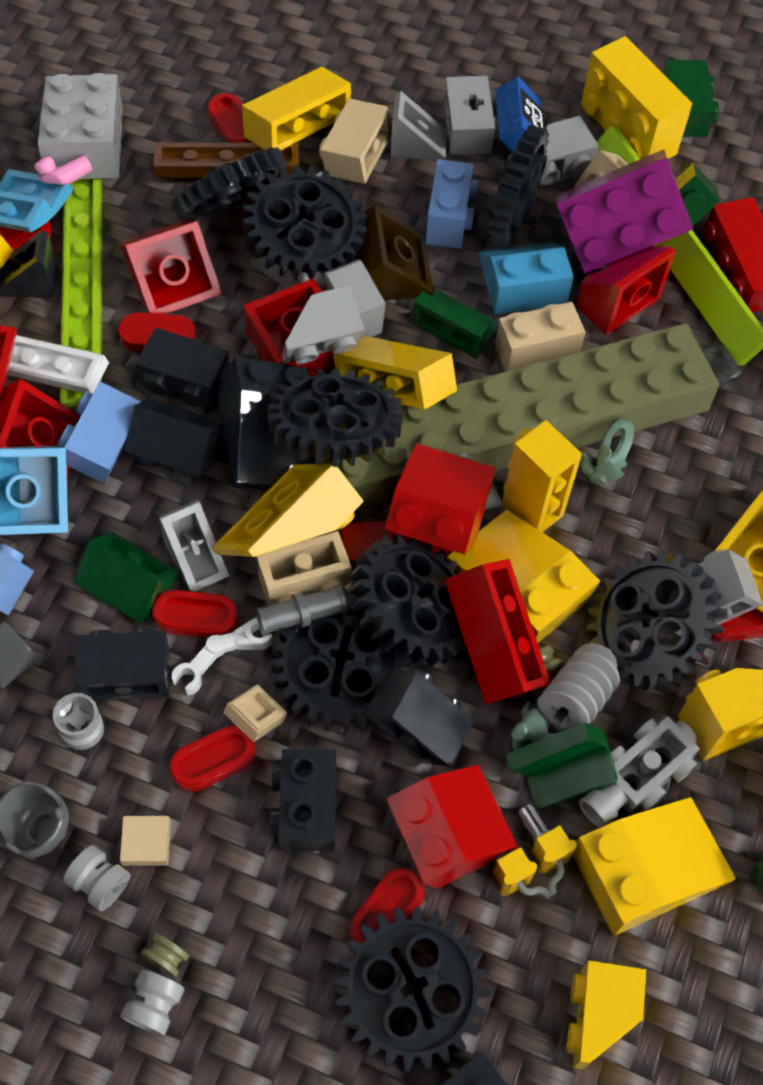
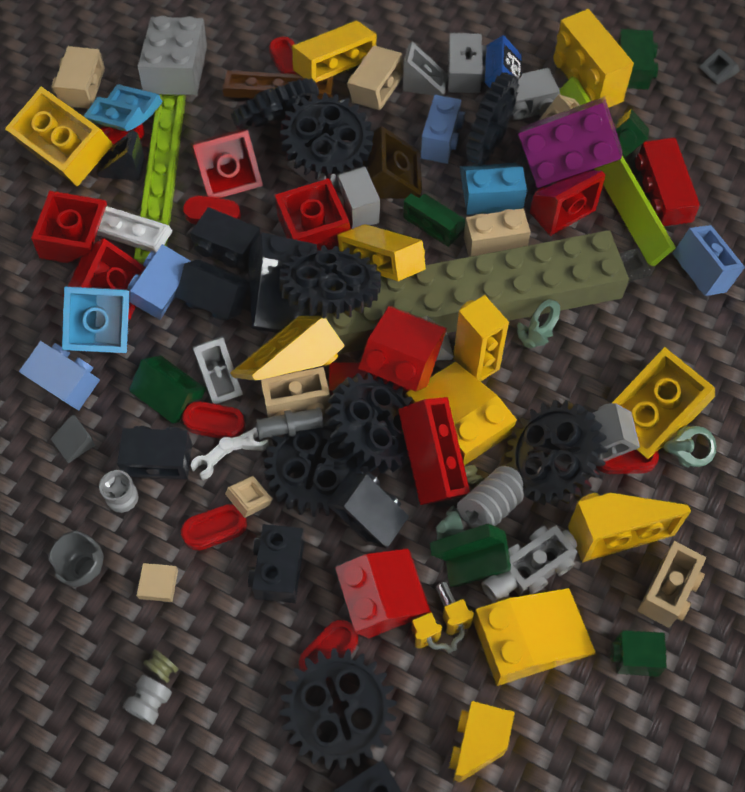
camera: 10 degrees right, 0 degrees up
(63, 174) = (154, 90): bright pink arm -> none
(96, 878) = (118, 605): light grey wheel -> none
(326, 324) = (330, 213): light grey slope -> none

